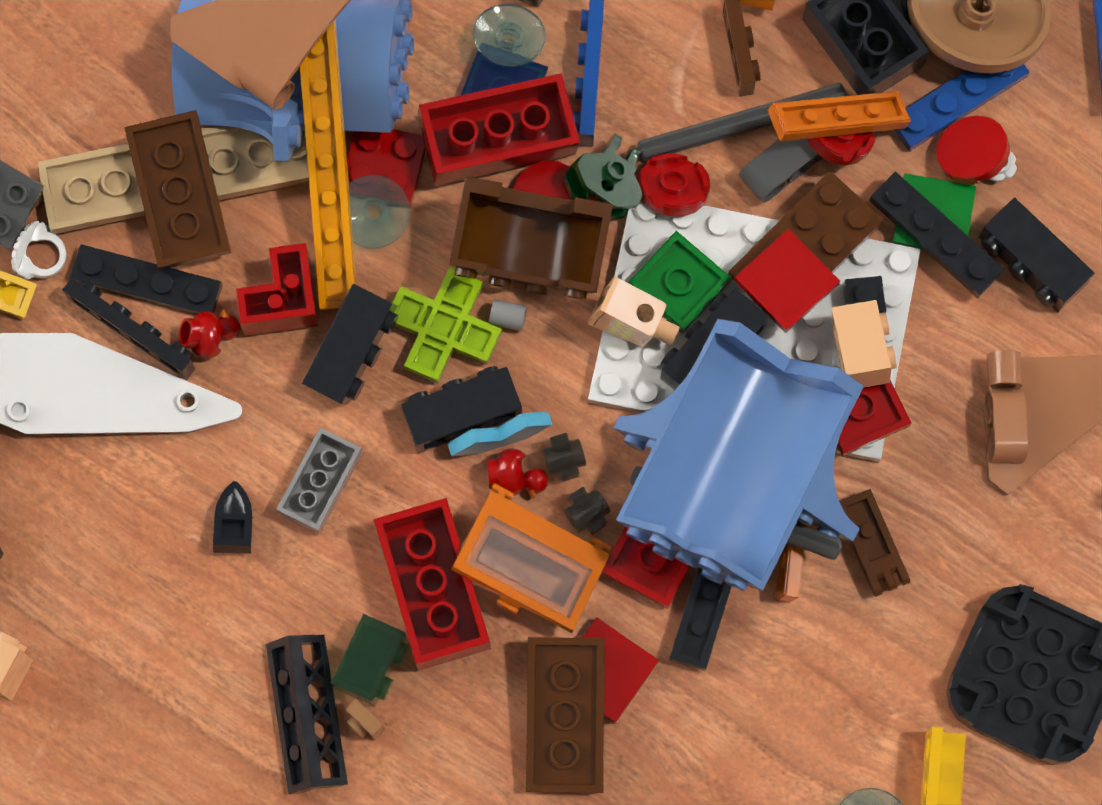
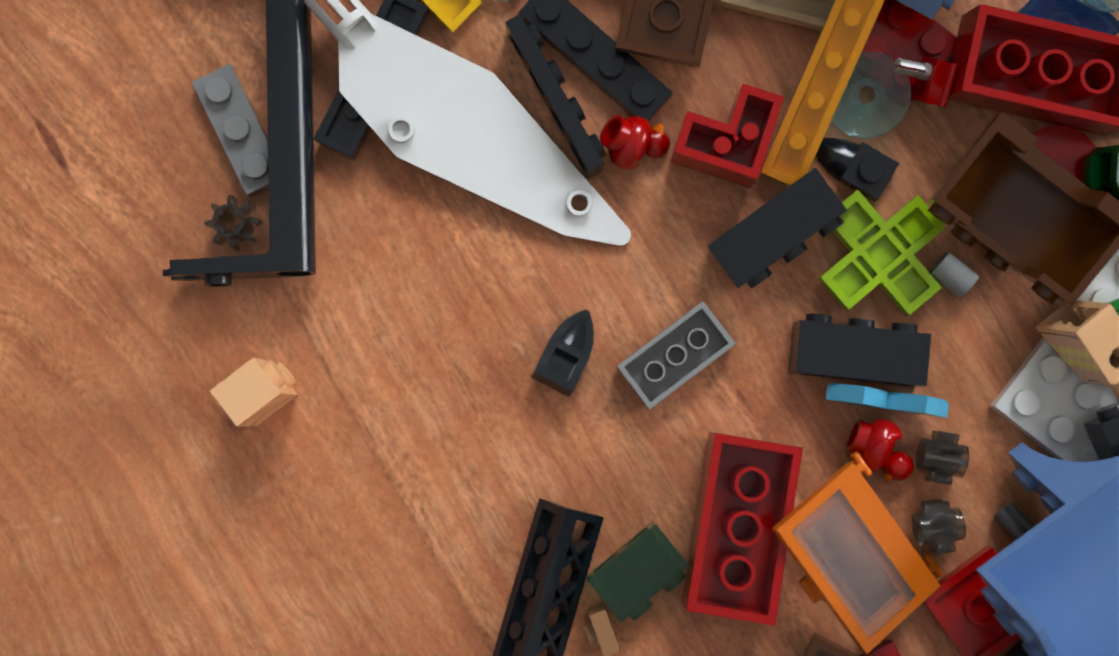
camera: 25 degrees right, 10 degrees up
(393, 269) = (857, 166): none -> black plate
(416, 173) = (933, 81): none -> red piece

